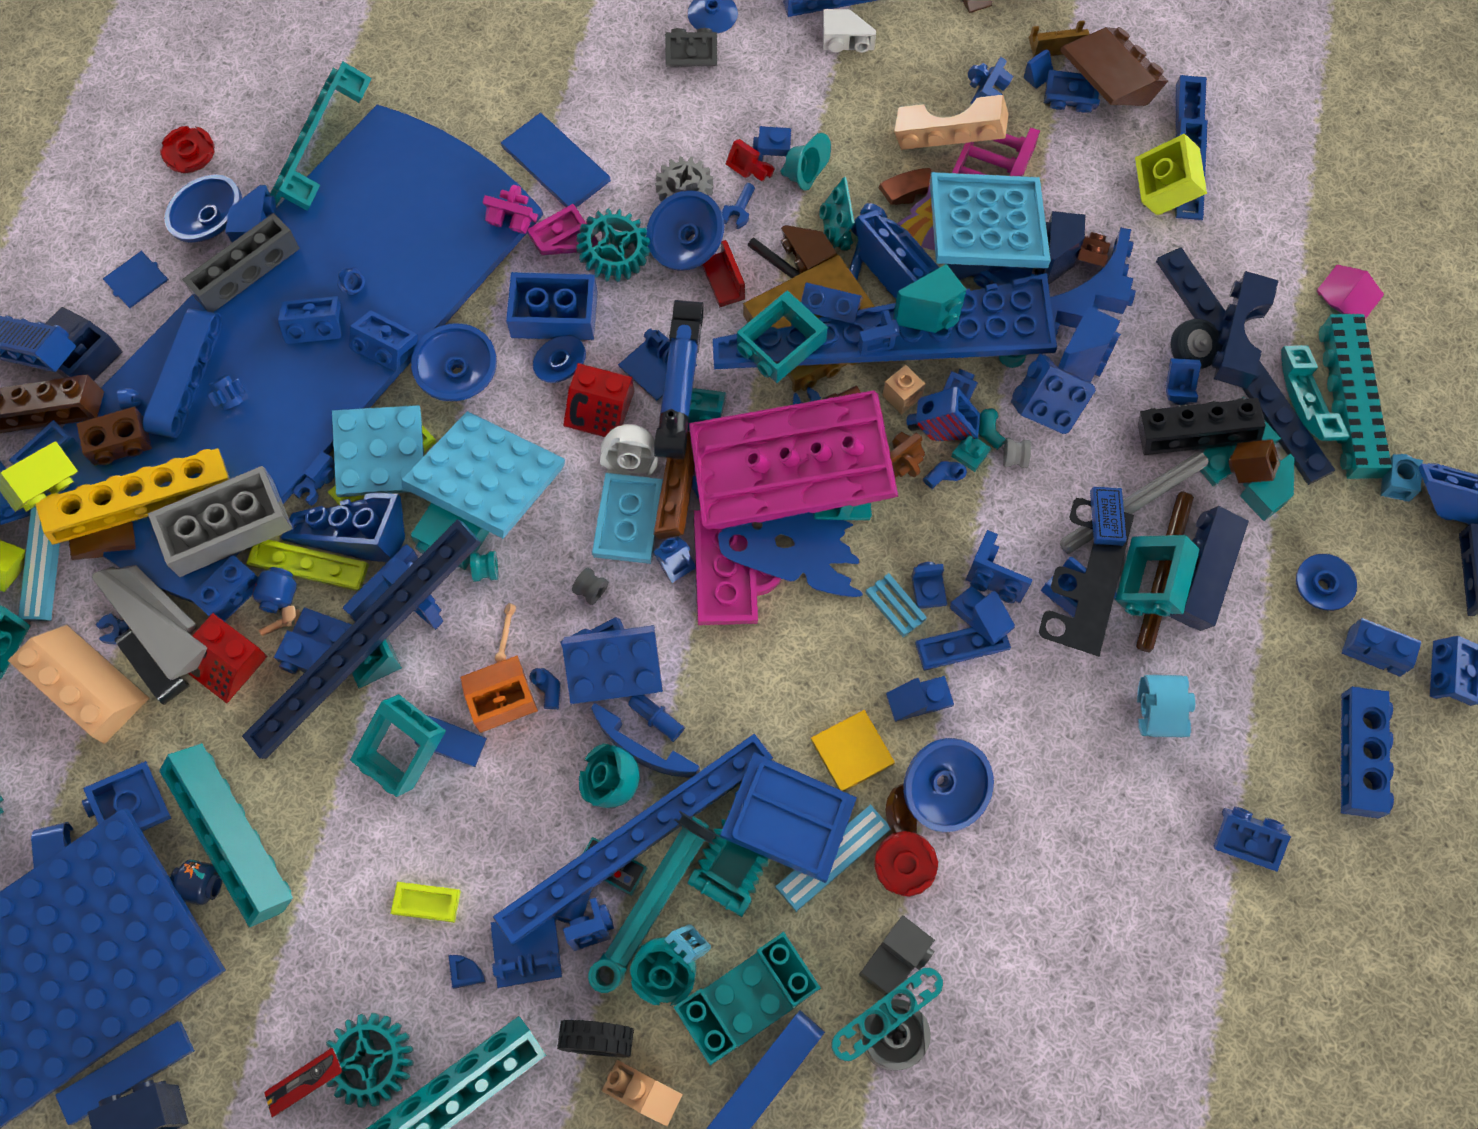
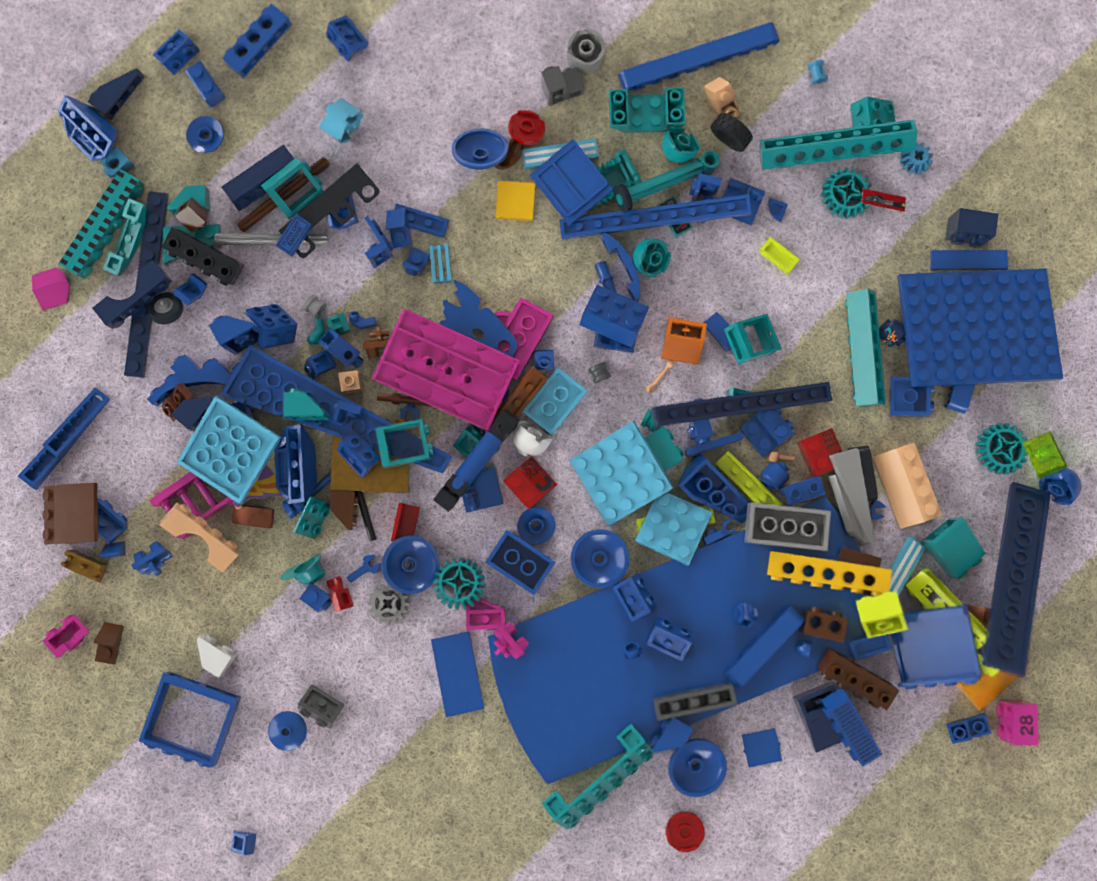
camera: 145 degrees left, 15 degrees up
(549, 685) = (652, 331): blue arm -> none
(692, 954) = (660, 153): medium azure tile -> none
(887, 1014) = (585, 51): teal beam -> none
(919, 698) = (462, 205): blue slope -> none
(1170, 175) = (95, 419): neon yellow brick -> none

